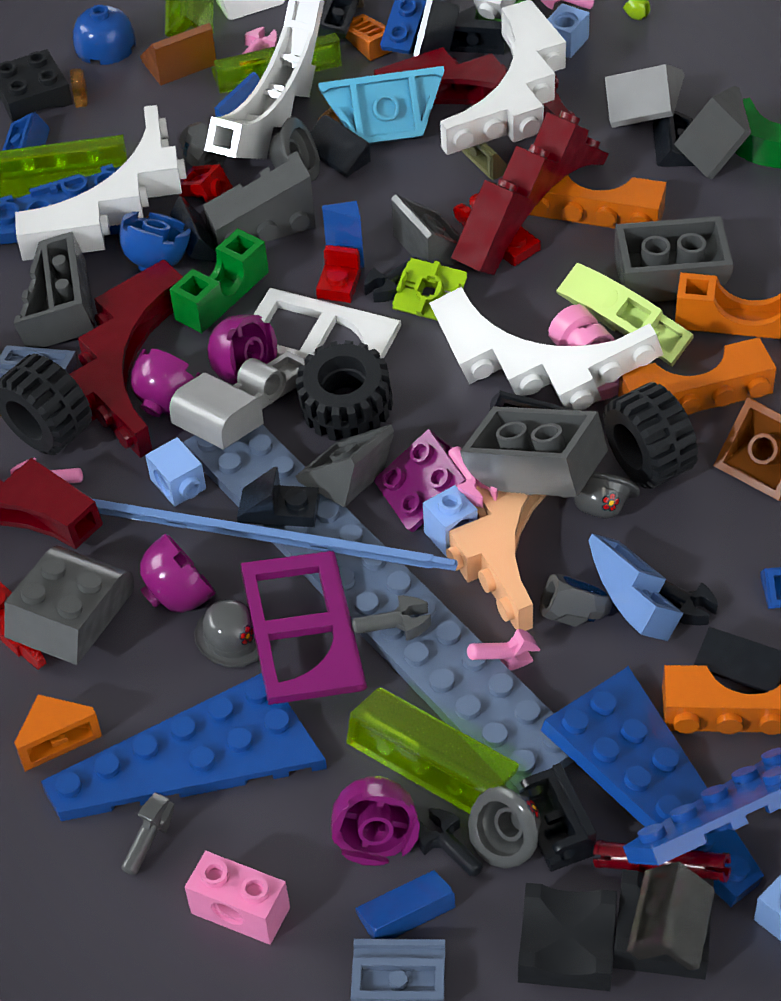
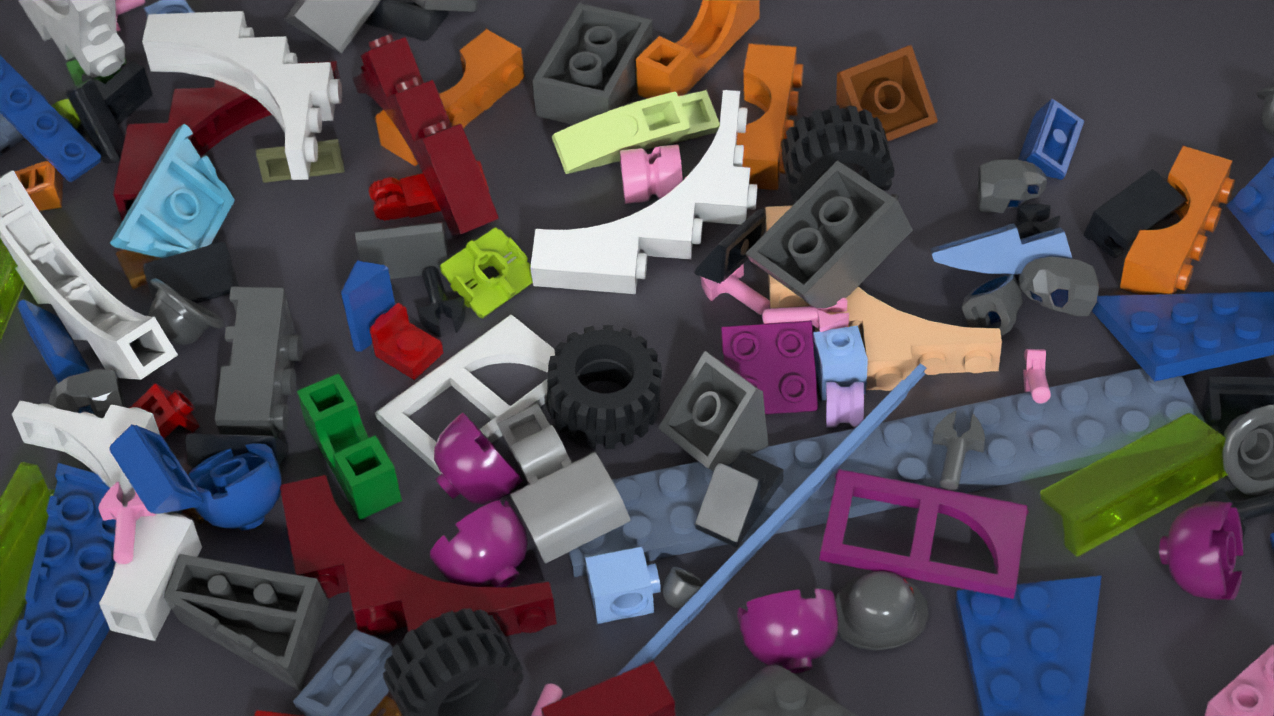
camera: 65 degrees left, 0 degrees up
(91, 186) = (126, 517): none -> bright pink bar
(120, 186) = (154, 471): none -> blue slope
(202, 503) = (680, 586): none -> dark grey hinge
(412, 535) = (844, 404): none -> lavender wheel
(615, 635) = (1061, 284): none -> dark grey rock
(716, 564) = (1008, 184): none -> dark grey rock

